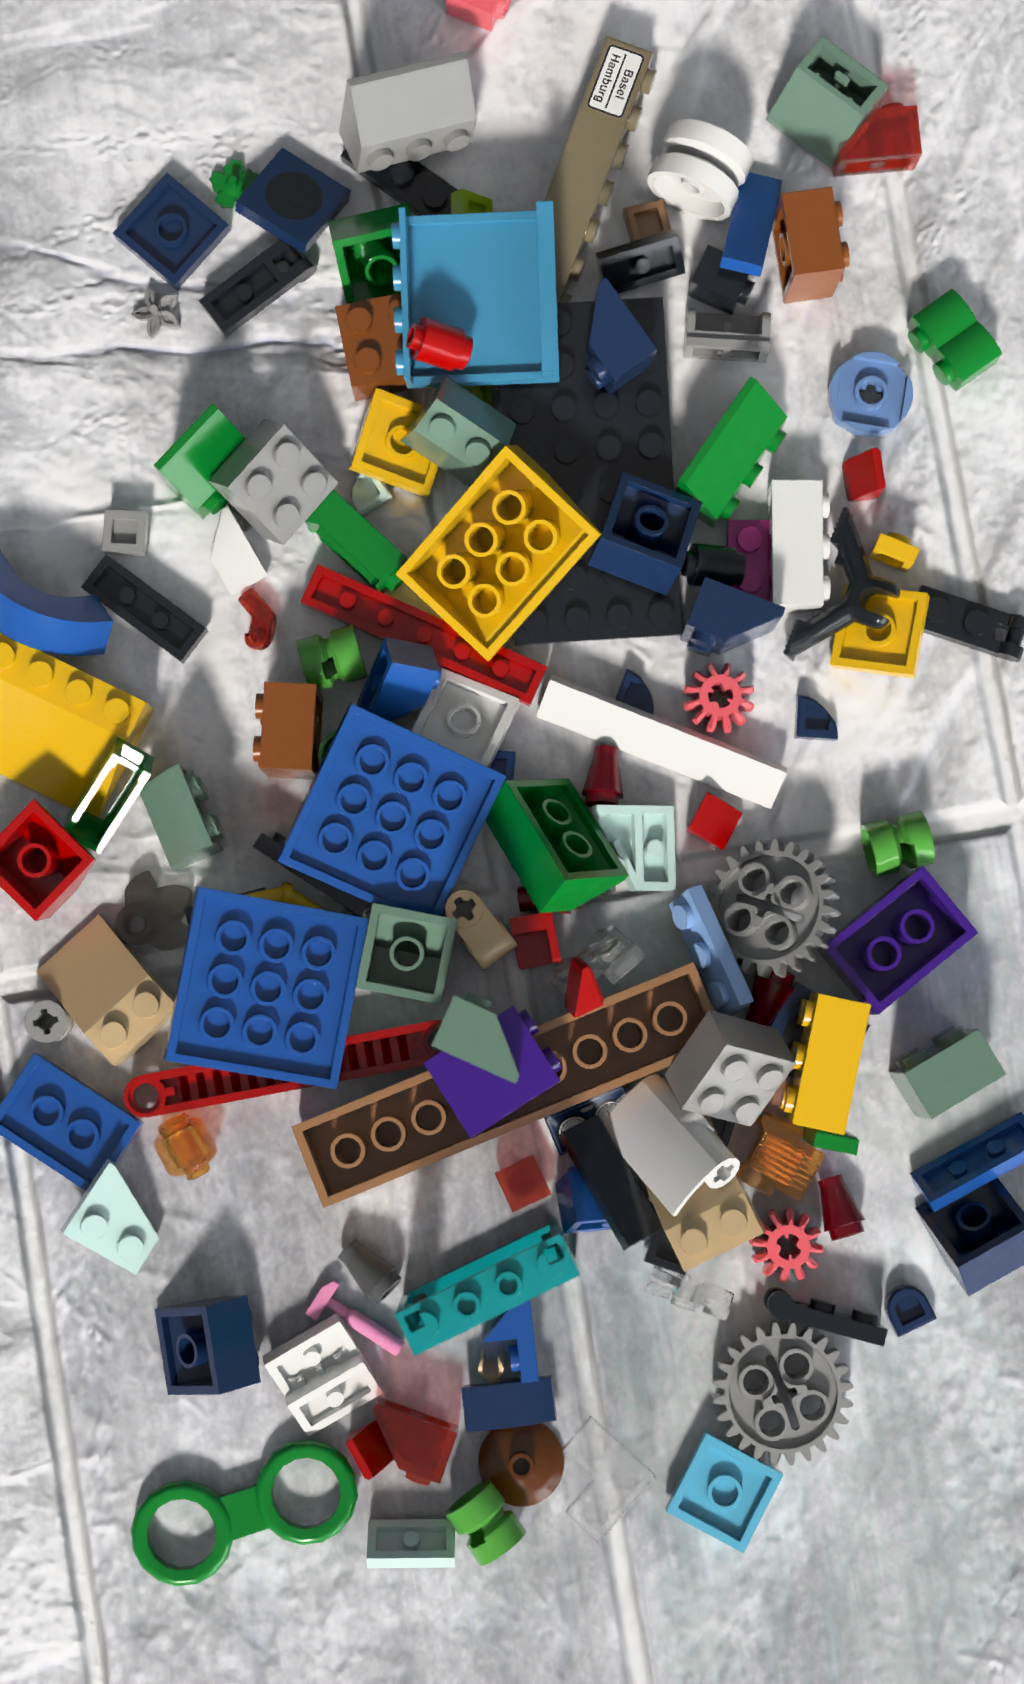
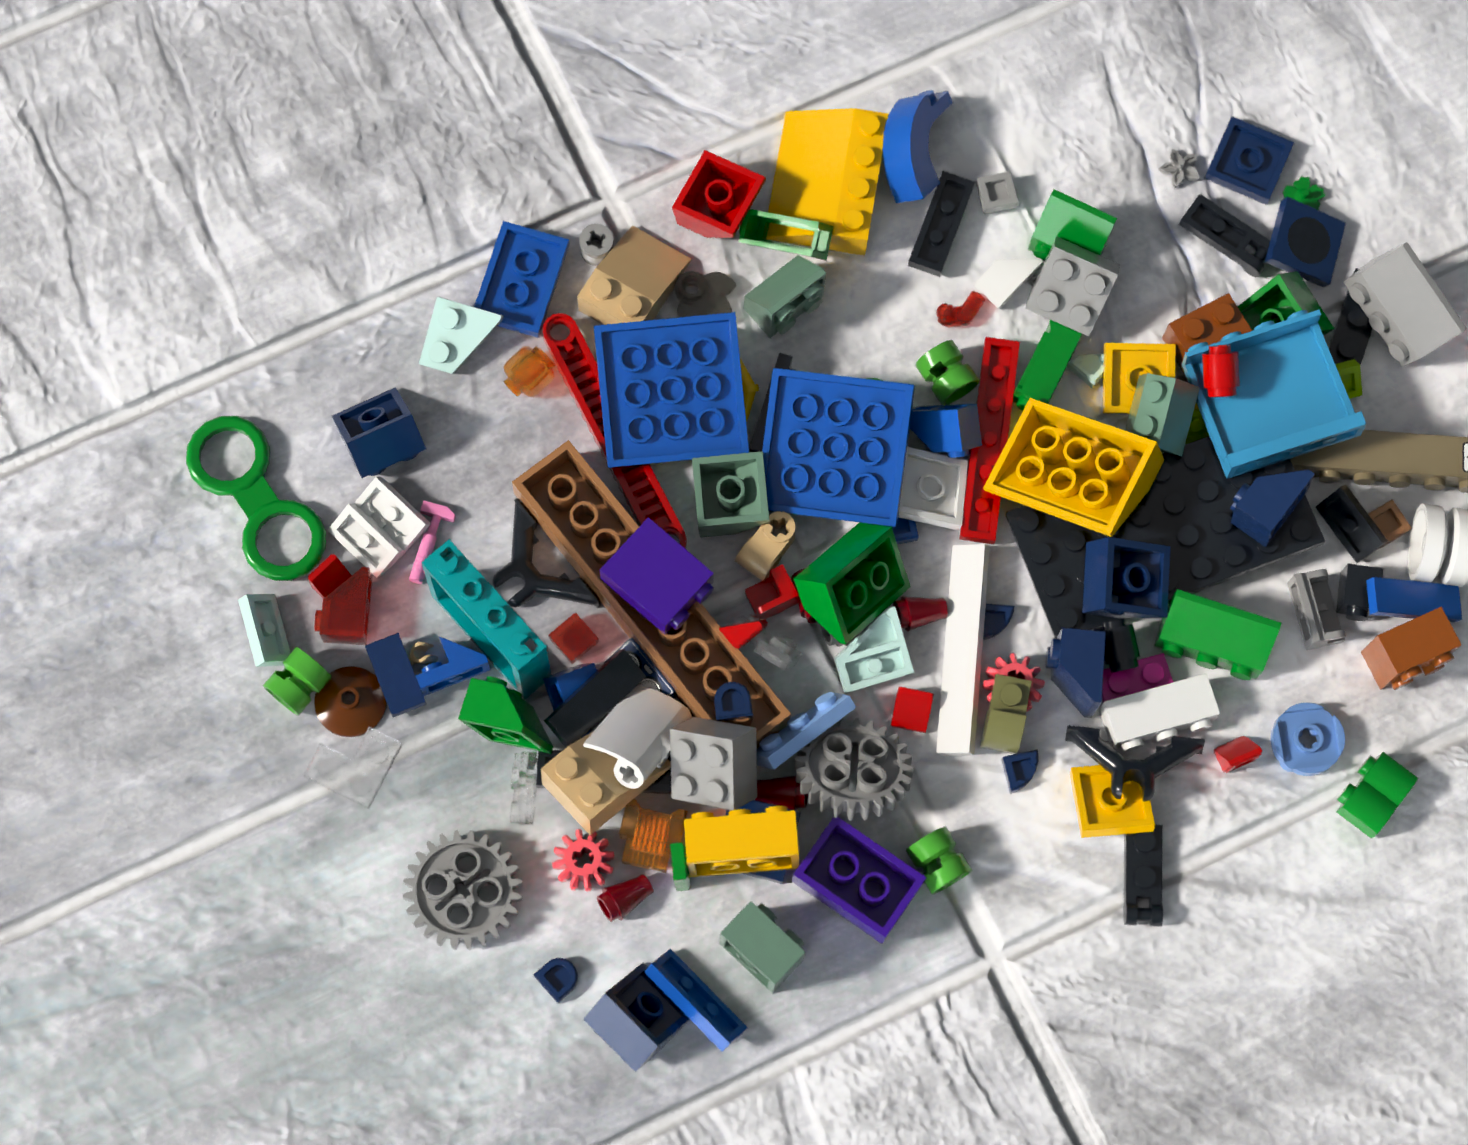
camera: 70 degrees right, 10 degrees down
(289, 730) = (881, 351): dark orange brick -> none
(370, 1271) = (472, 536): dark grey cone -> none
(442, 1209) = (535, 582): none -> black piece
(476, 1036) = (682, 542): sand green slope -> none
(602, 1293) = (503, 715): none -> green slope
(664, 1025) = (732, 702): none -> dark blue tile
(724, 1491) = (370, 865): medium azure plate -> none
(759, 719) = (1006, 714): none -> olive brick
(822, 1316) = (533, 905): black plate -> none
(894, 551) = (1182, 793): yellow plate -> none

